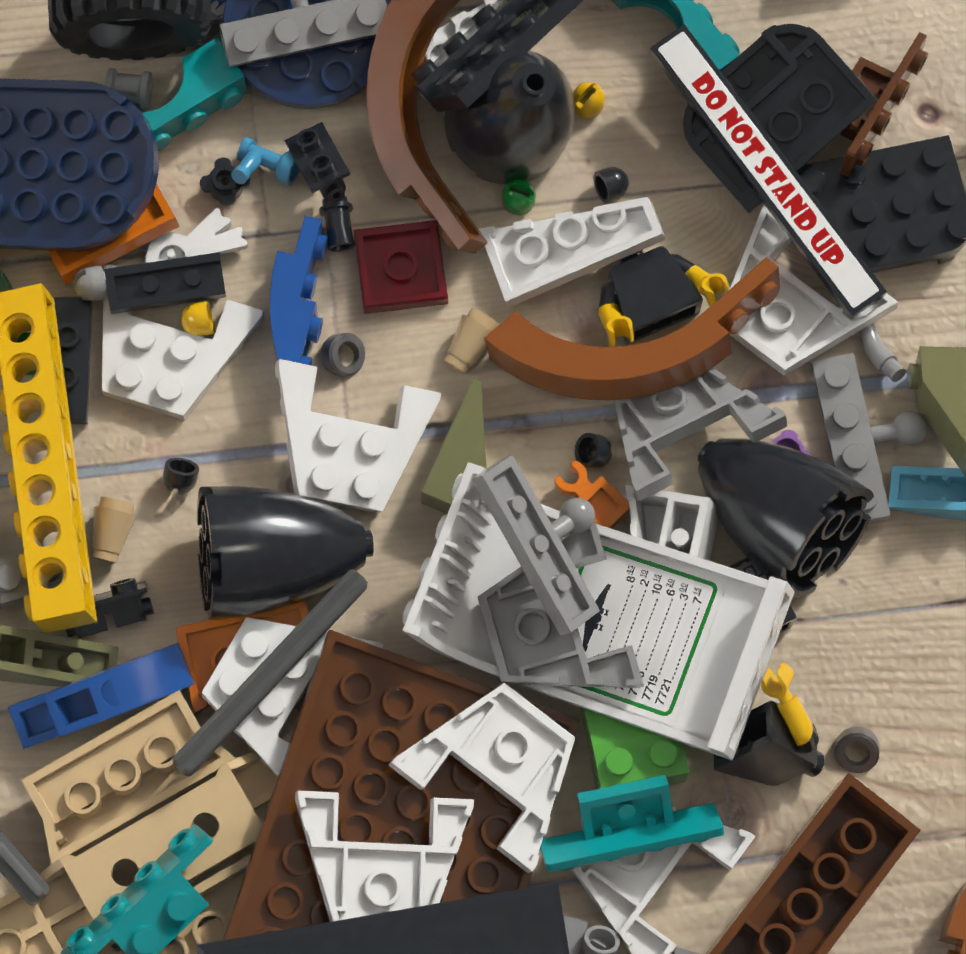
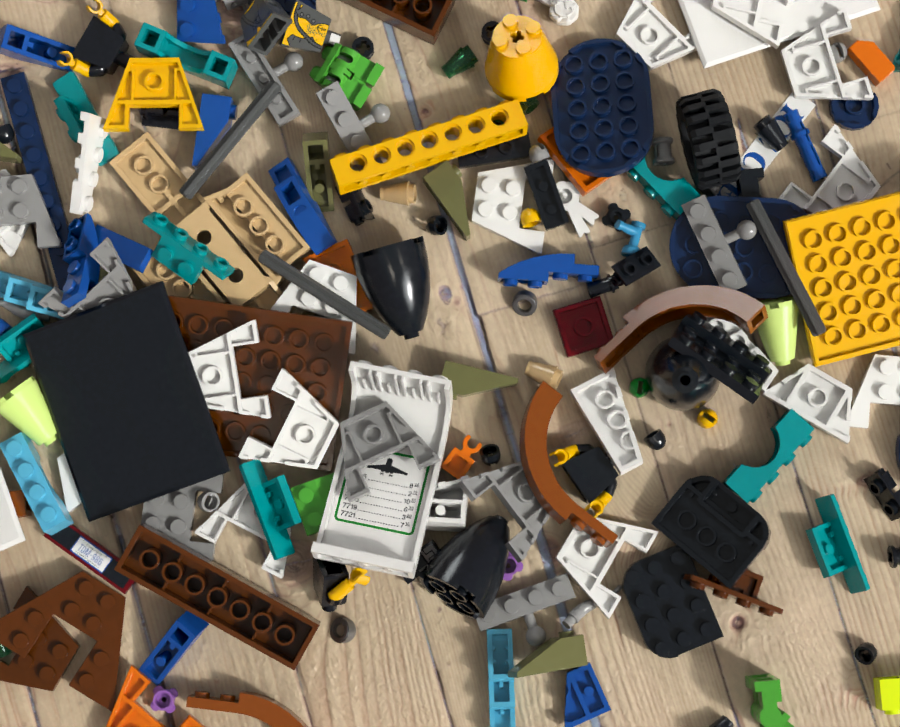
camera: 80 degrees right, 10 degrees up
(130, 442) = (447, 189): none -> olive slope
(345, 458) = (460, 315): white wing -> none
(538, 541) = (415, 427): light grey plate -> none
(768, 172) = (673, 529): tile -> none

